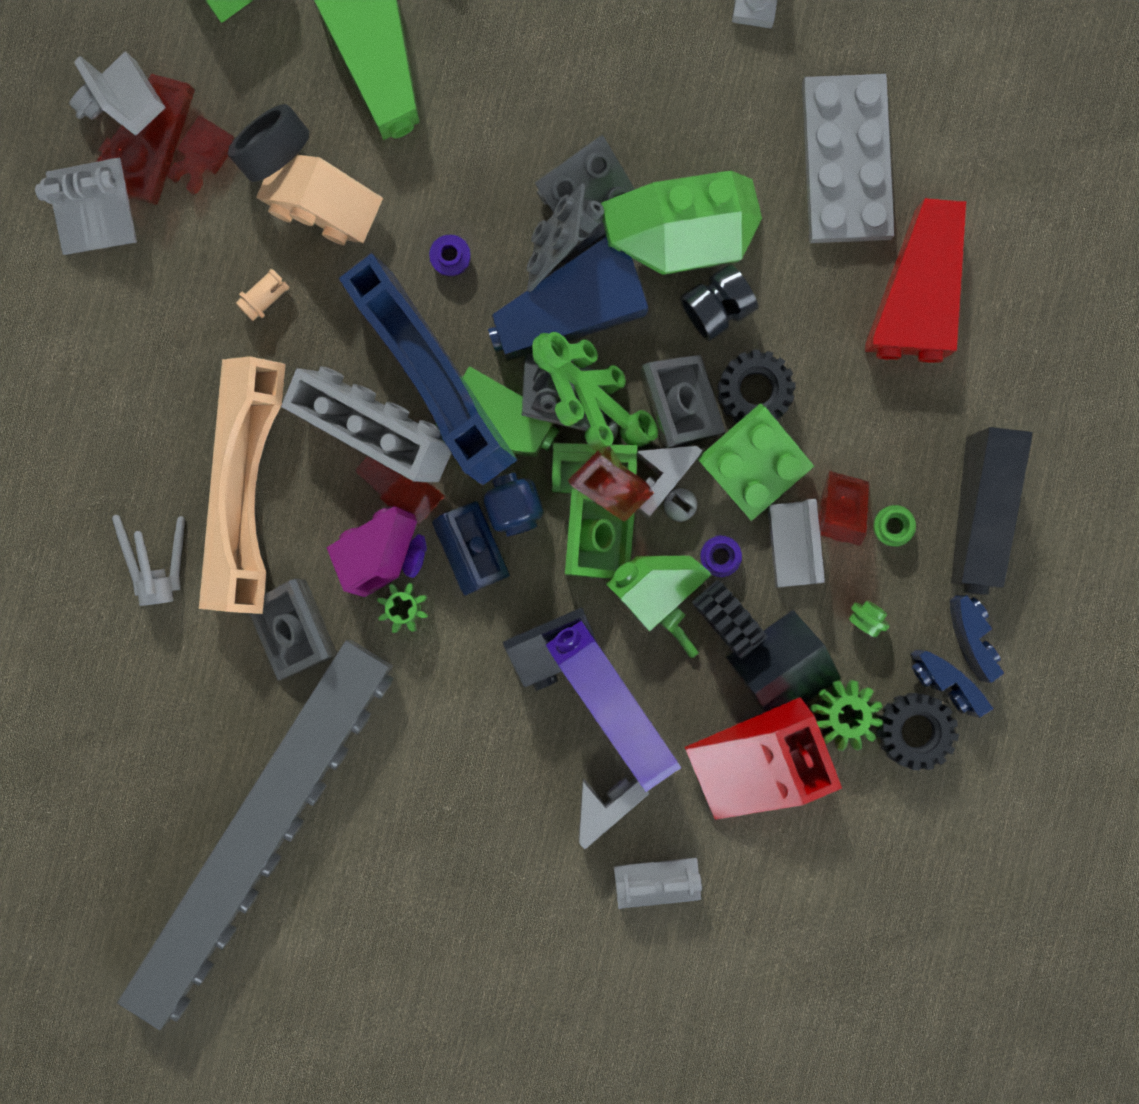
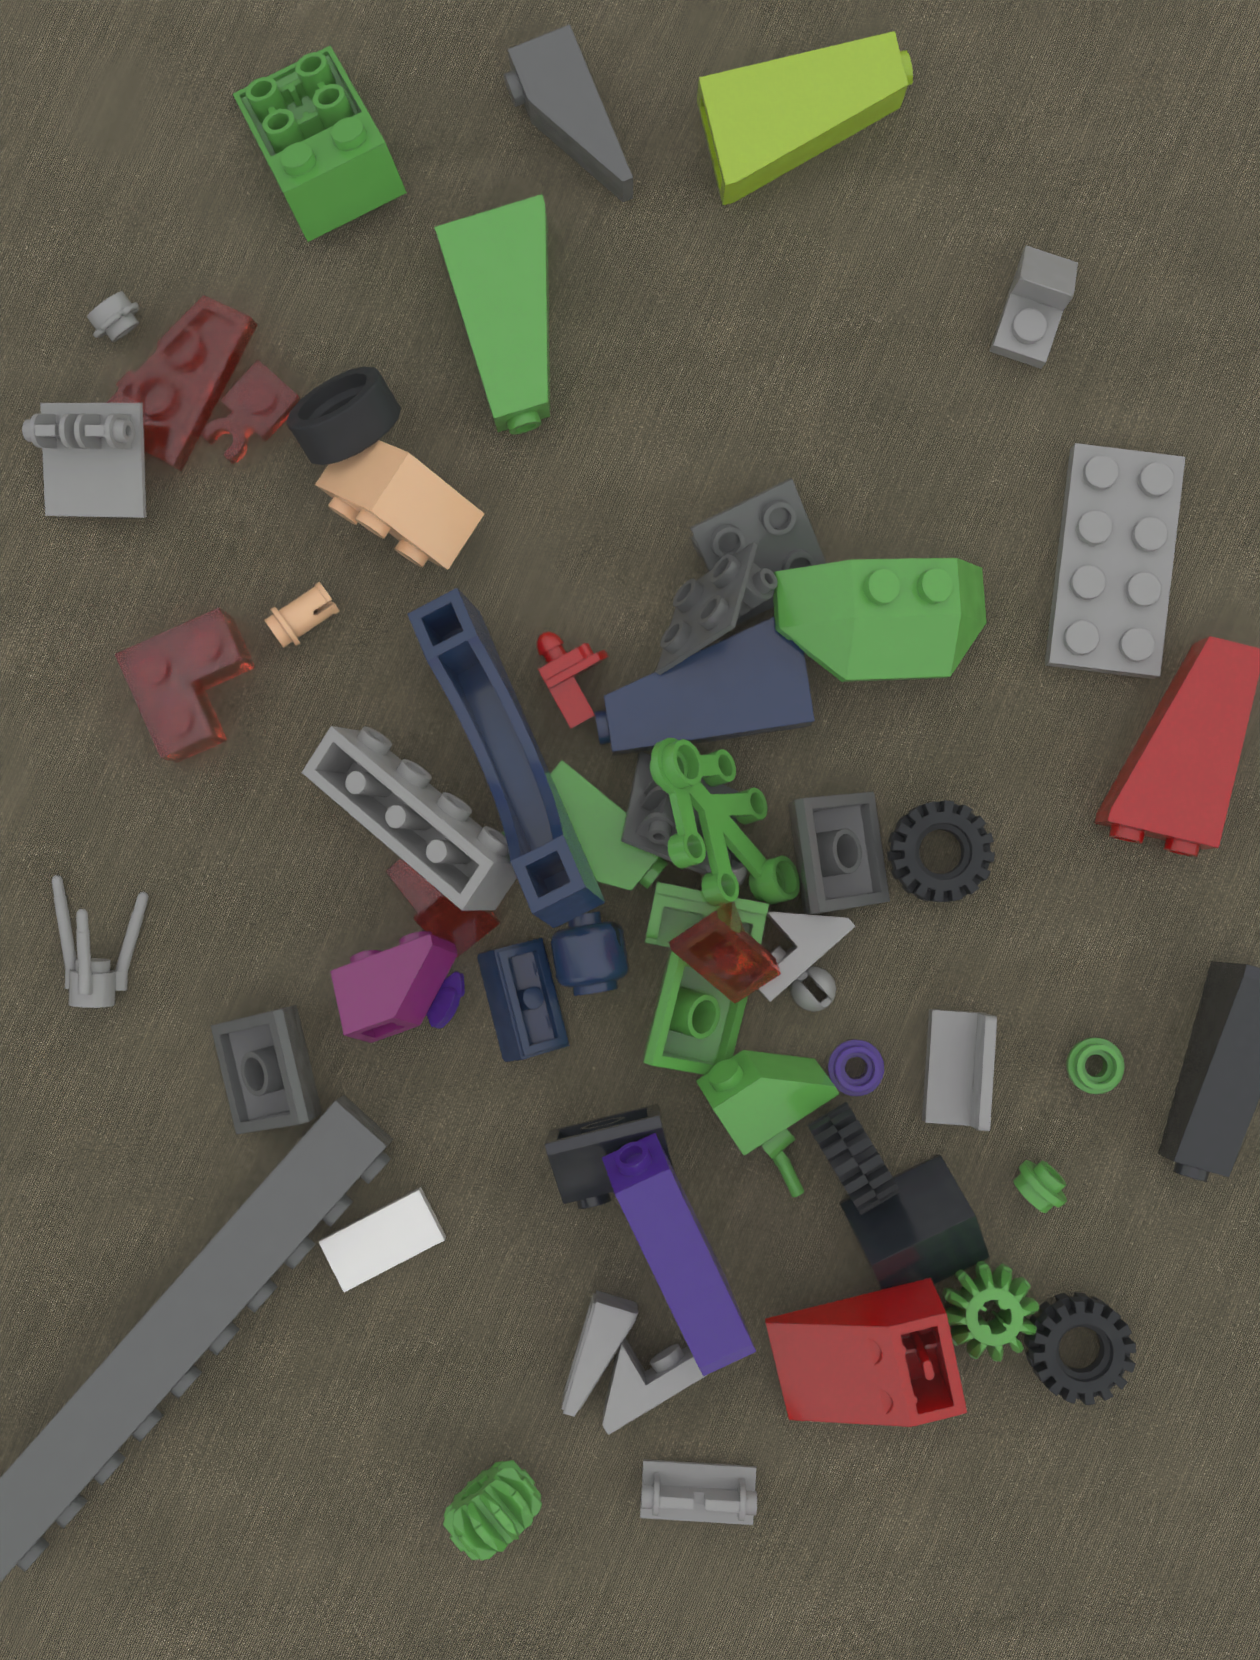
camera: 10 degrees right, 0 degrees up
(123, 92) = (160, 314): light grey panel -> none
(176, 353) = (171, 679): none -> clear red brick
(232, 560) = (202, 969): light nougat arch -> none
(392, 603) = (413, 1081): bright green gear -> none
(397, 739) = (382, 1239): none -> white tile
(453, 267) = (564, 620): dark purple plate -> none
(459, 304) = (560, 674): none -> red piece
(509, 919) = (492, 1510): none -> bright green gear
(568, 779) = (603, 1332): none -> light grey slope
(716, 304) = (914, 726): black wheel -> none
(756, 462) = (923, 951): bright green plate -> none
(844, 508) = (1032, 1033): clear red slope -> none
(940, 675) = (1127, 1281): dark blue slope -> none
(969, 626) = (1175, 1221): dark blue slope -> none

